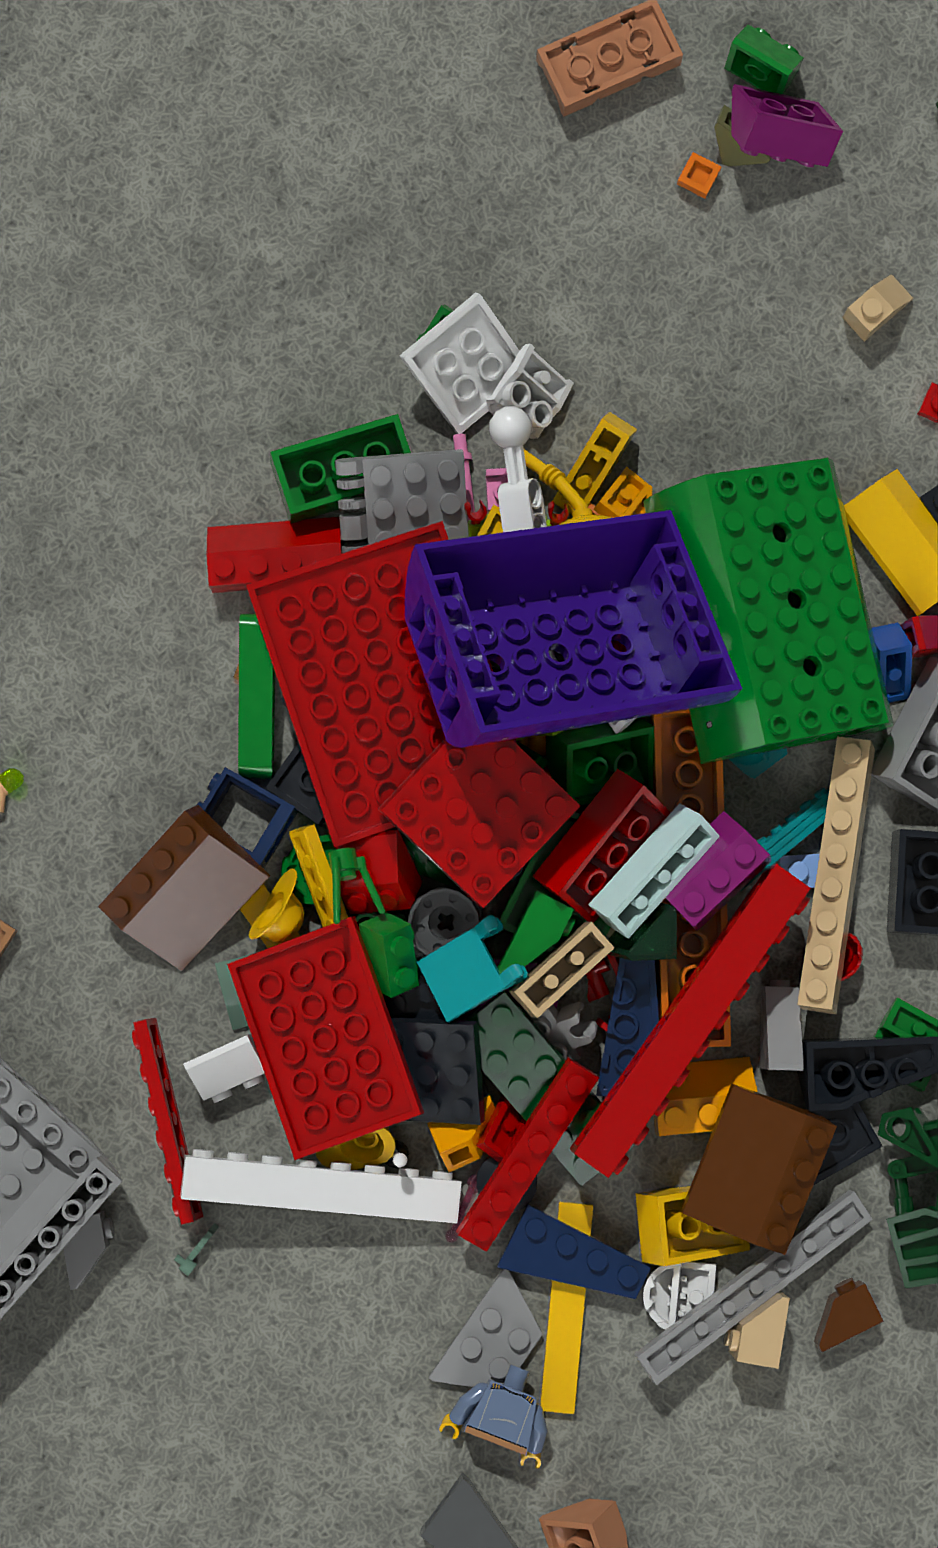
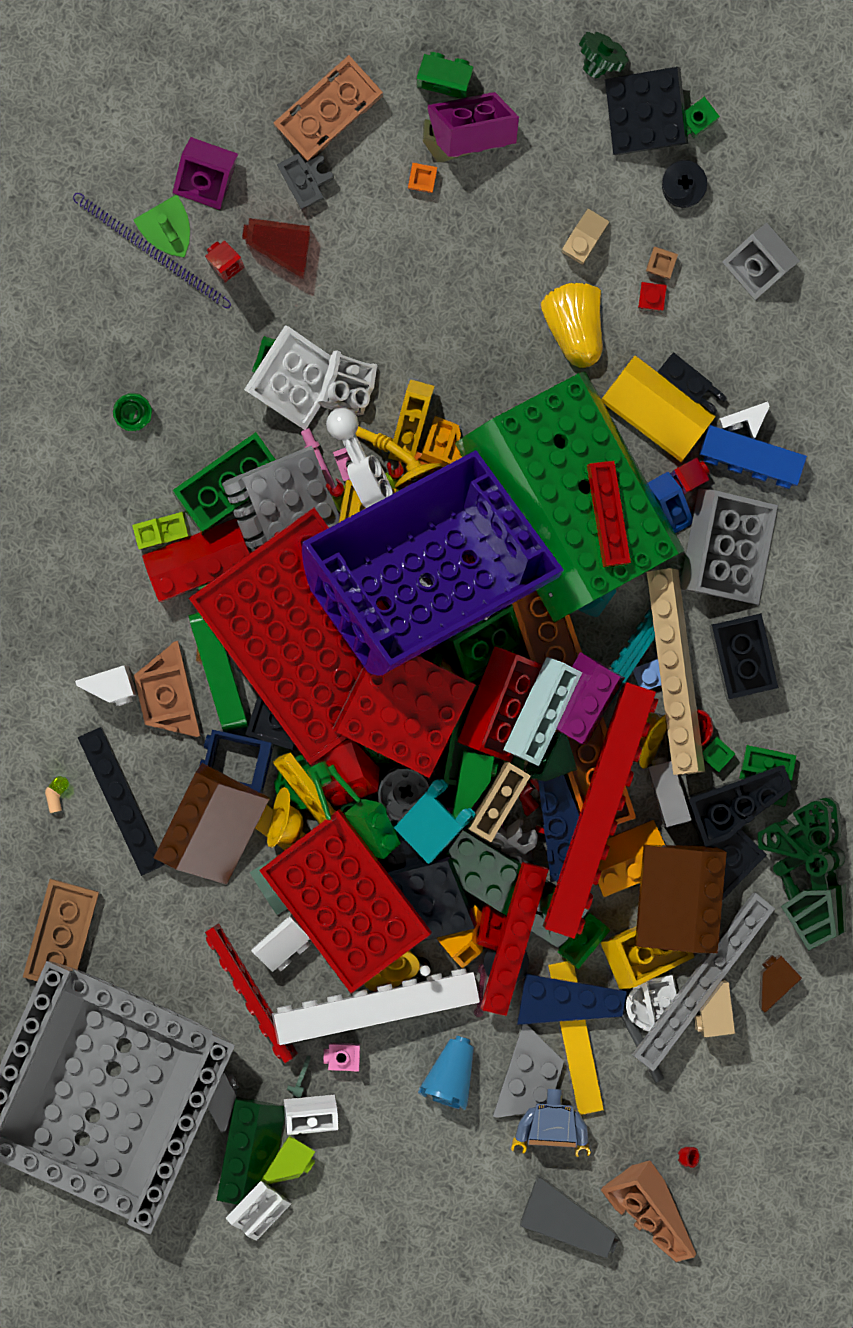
camera: 10 degrees left, 5 degrees up
(81, 822) = (120, 800): none -> black plate
(86, 1408) = (258, 1210): none -> white slope
(101, 1328) = (250, 1147): none -> dark green slope
(116, 671) = (112, 685): none -> white slope
(147, 1357) = (289, 1162): none -> lime slope
(182, 706) = (166, 693): none -> nougat wing
(194, 1302) = (311, 1114): none -> white brick
(242, 503) = (161, 530): none -> lime slope
(246, 340) = (125, 409): none -> green hair
(272, 1239) = (352, 1054): none -> bright pink brick
(342, 159) = (135, 244): none -> dark purple piece
(366, 140) = (166, 227): none -> bright green shield
(391, 1306) = (451, 1074): none -> dark azure cone
(426, 198) = (224, 260): none -> red slope
(433, 87) = (204, 173): none -> magenta slope
(499, 199) = (280, 243): none -> clear red slope
(554, 132) = (304, 179): none -> dark grey plate
(605, 1193) = (580, 948): none -> green plate
(646, 1336) = (637, 1038): none -> dark grey bar
(666, 1510) = (693, 1154): none -> red hinge
(782, 952) = (651, 743): none -> yellow piece
(817, 641) = (608, 513): none -> red plate
(835, 405) = (575, 322): none -> yellow hair
(857, 998) = (717, 754): none -> green plate

